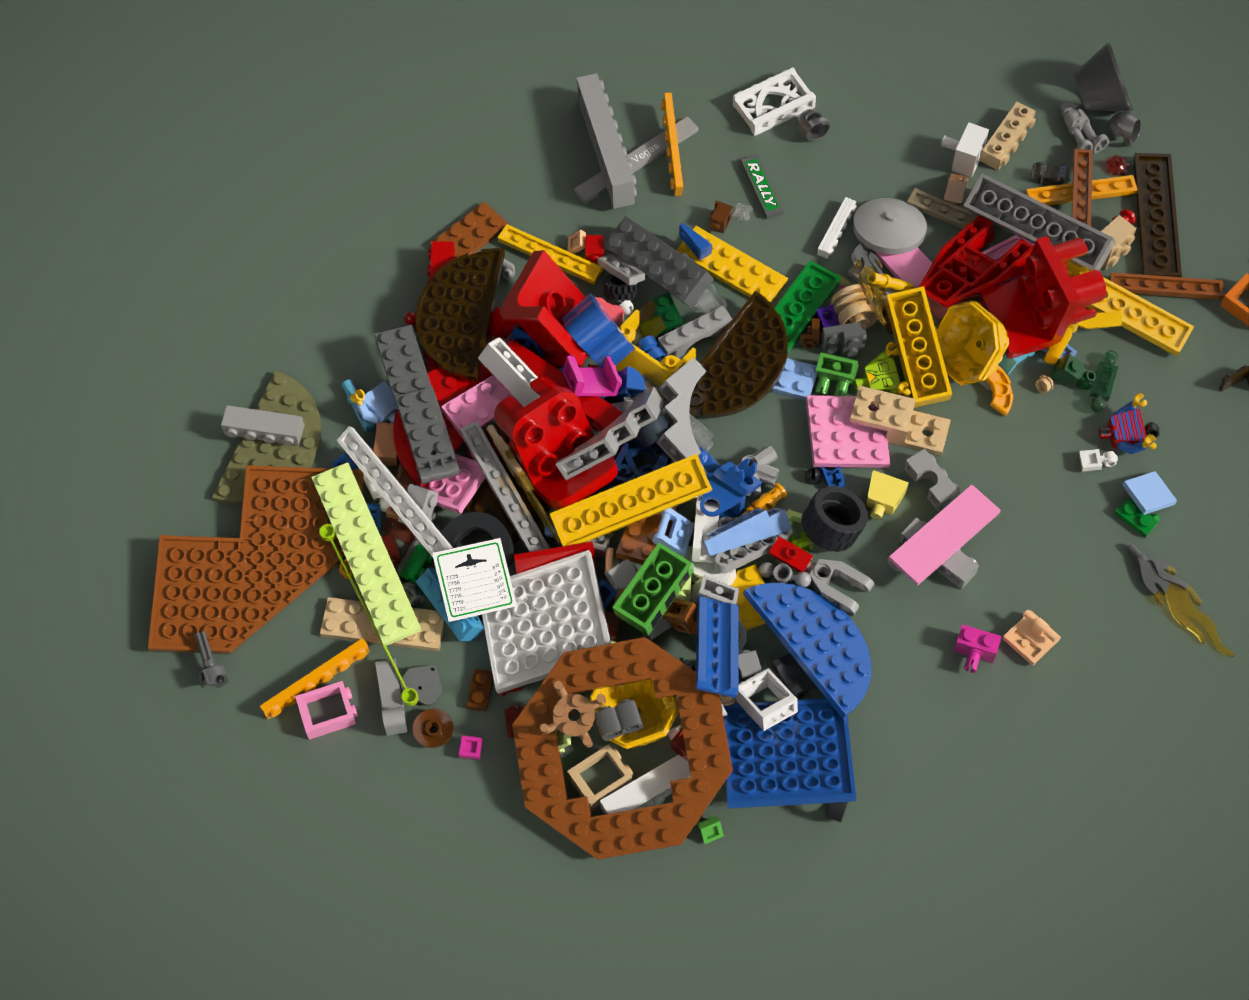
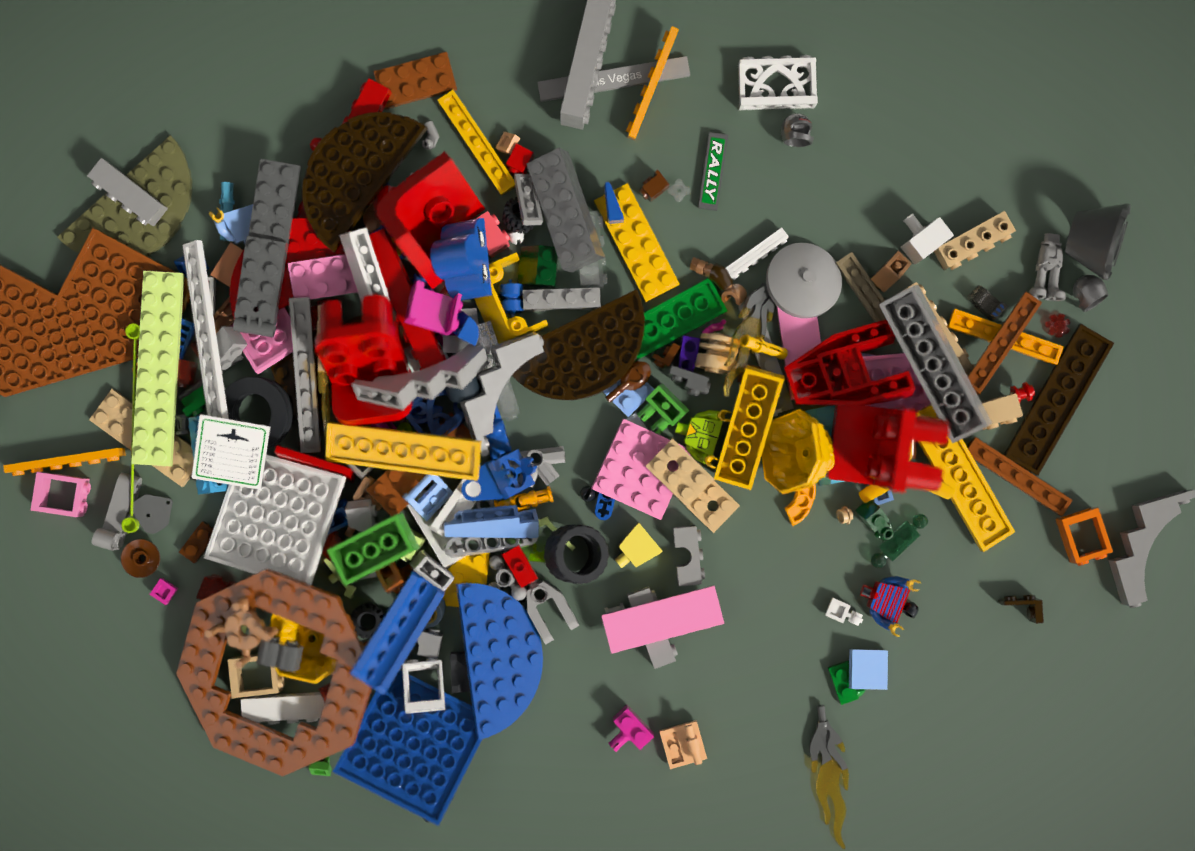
camera: 25 degrees right, 25 degrees up
(796, 363) = (632, 380): none -> reddish brown piece
(818, 253) = (722, 278): none -> medium nougat piece

